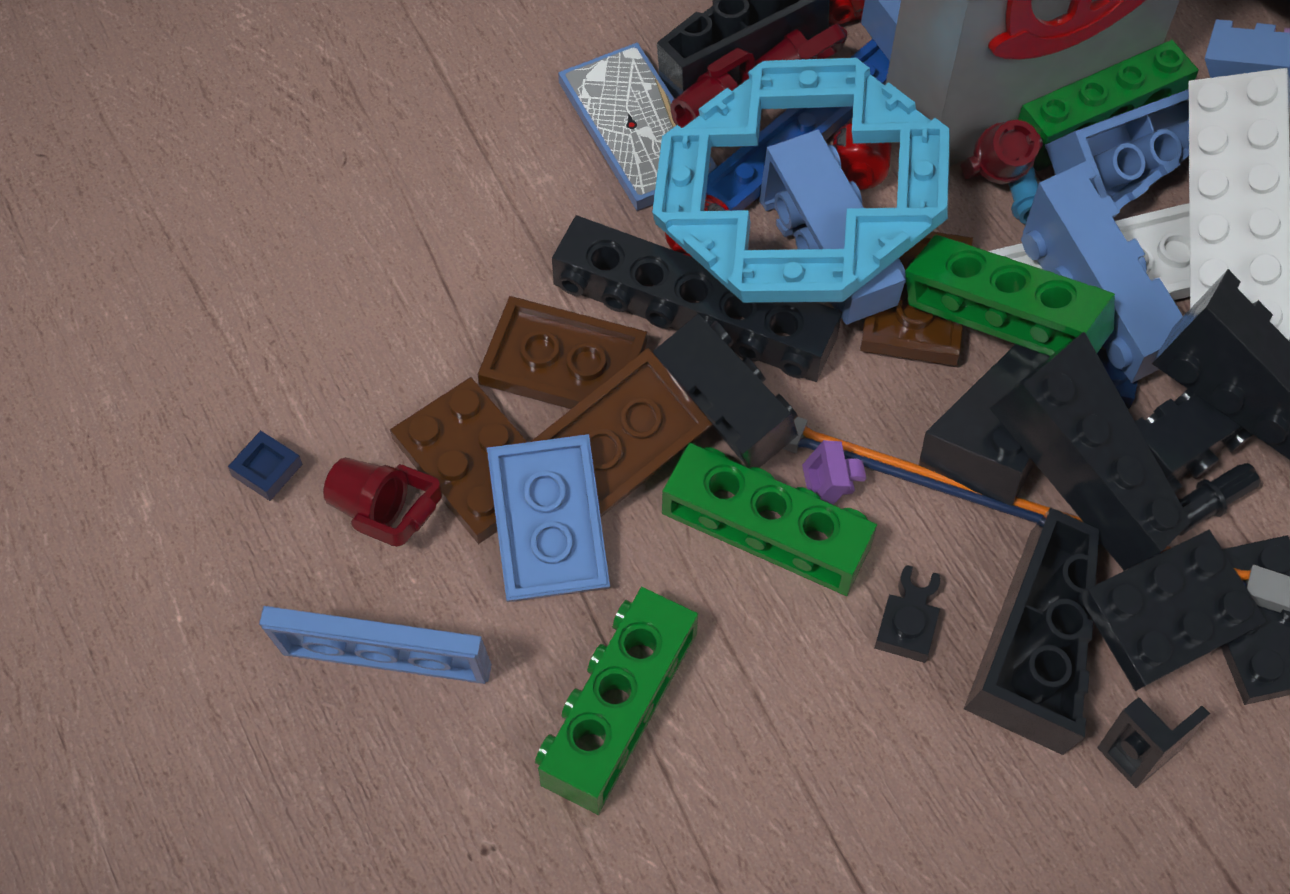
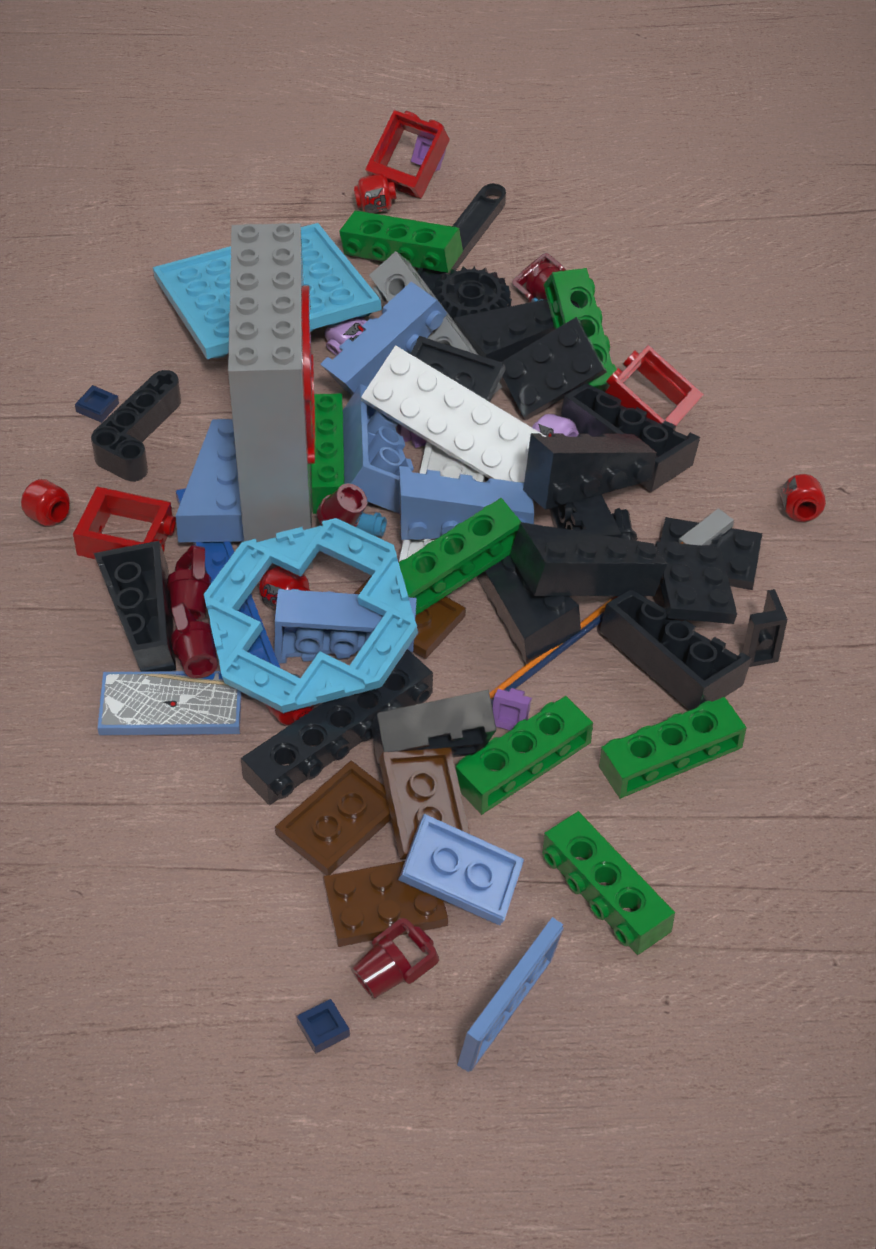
camera: 65 degrees left, 10 degrees down
(895, 723) = (694, 738): none -> green brick
(908, 621) = (622, 717): black plate -> none

